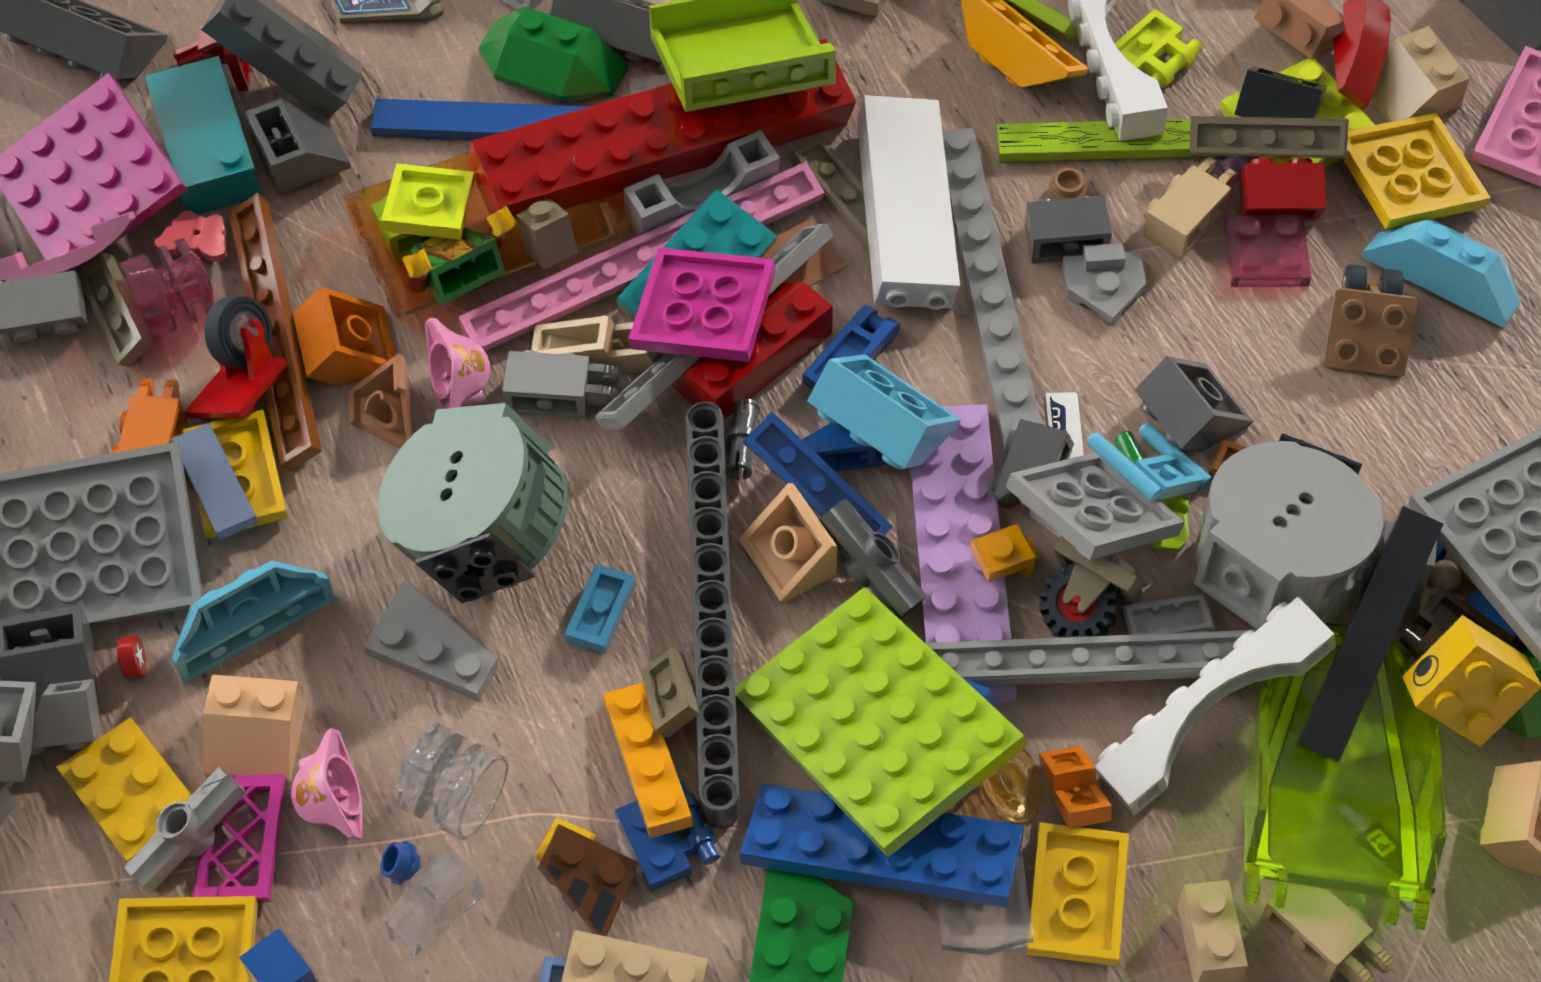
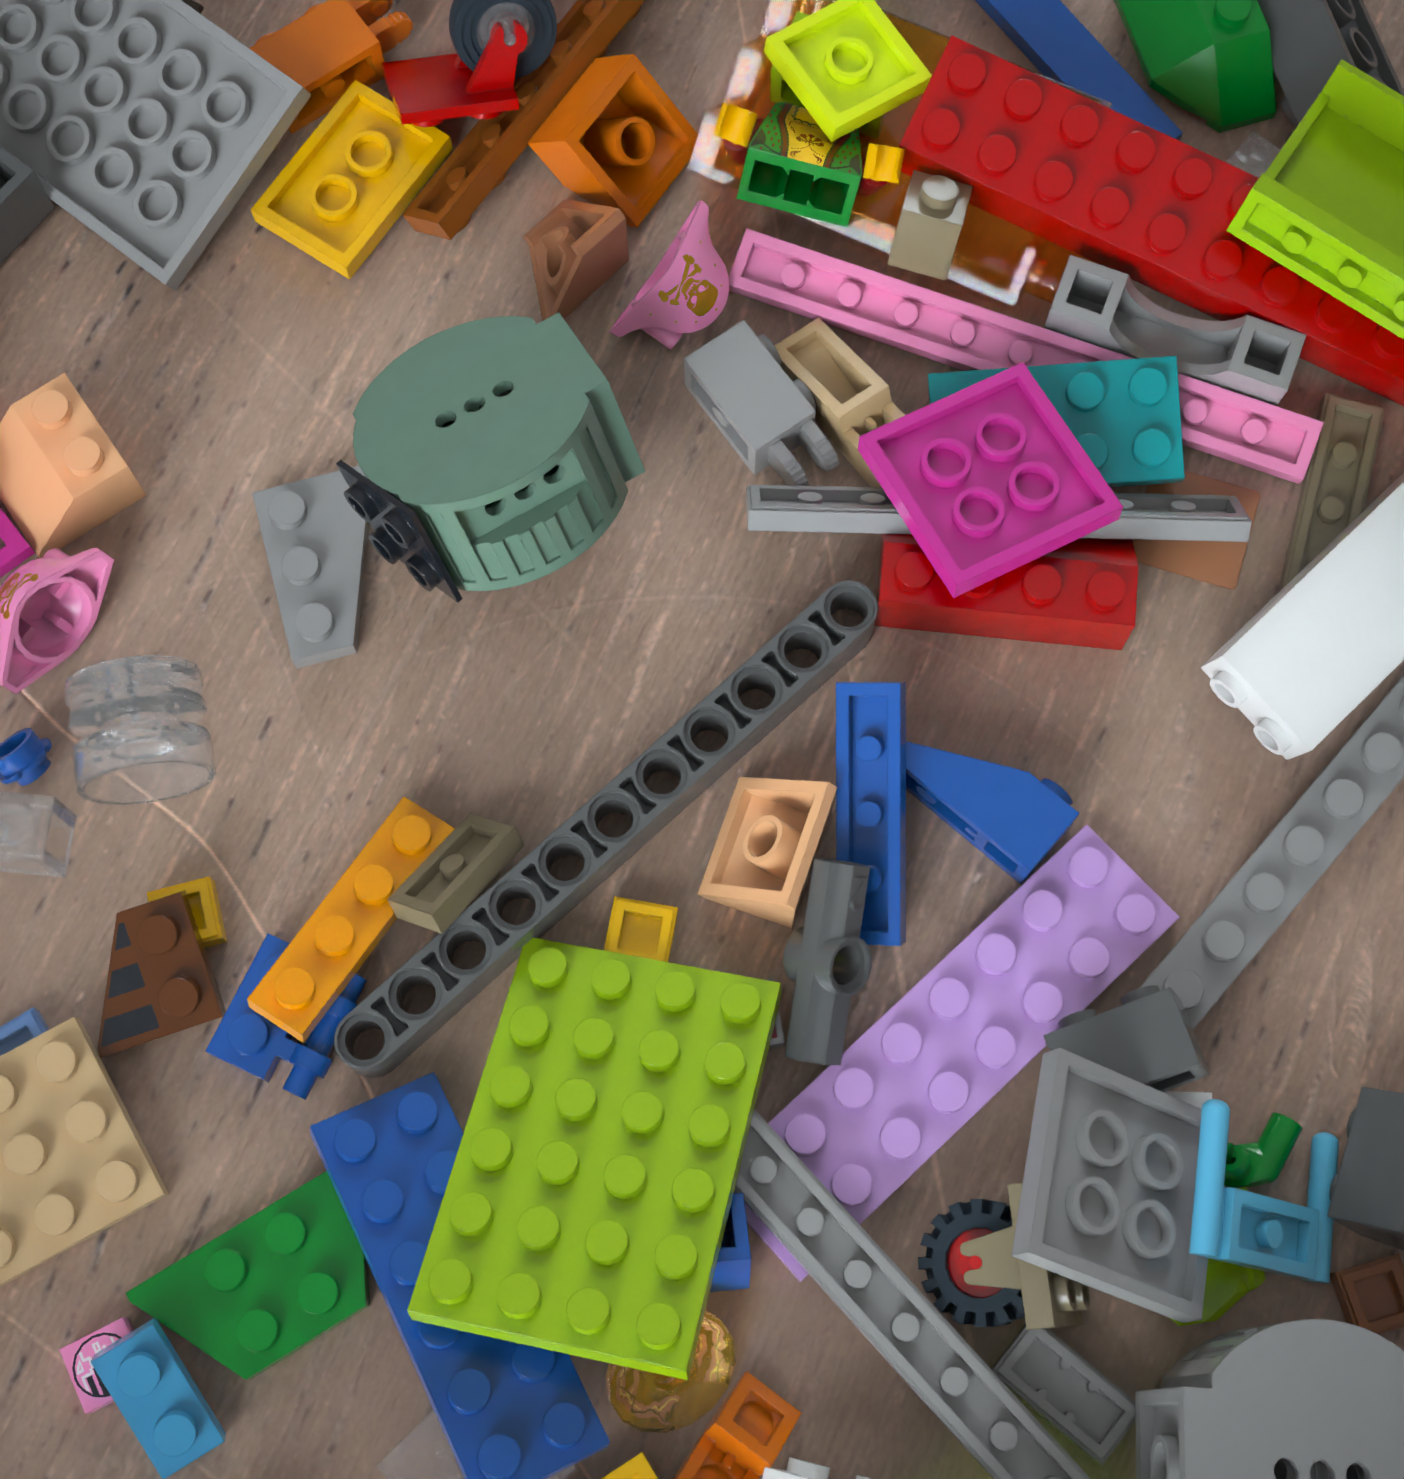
camera: 50 degrees right, 15 degrees up
(131, 657) = (45, 275): red tile -> none
(215, 482) = (312, 167): sand blue tile -> none
(247, 613) = (180, 338): medium azure wedge -> none
(600, 609) = (509, 702): dark azure plate -> none
(743, 424) = (878, 665): dark grey pin -> none
(773, 637) = (641, 929): none -> yellow tile
(855, 341) = (1105, 695): blue plate -> none
(881, 410) = (1034, 808): medium azure slope -> none
(1005, 553) = (978, 1113): light orange bracket -> none
(1065, 415) = (1247, 1030): white sticker -> none

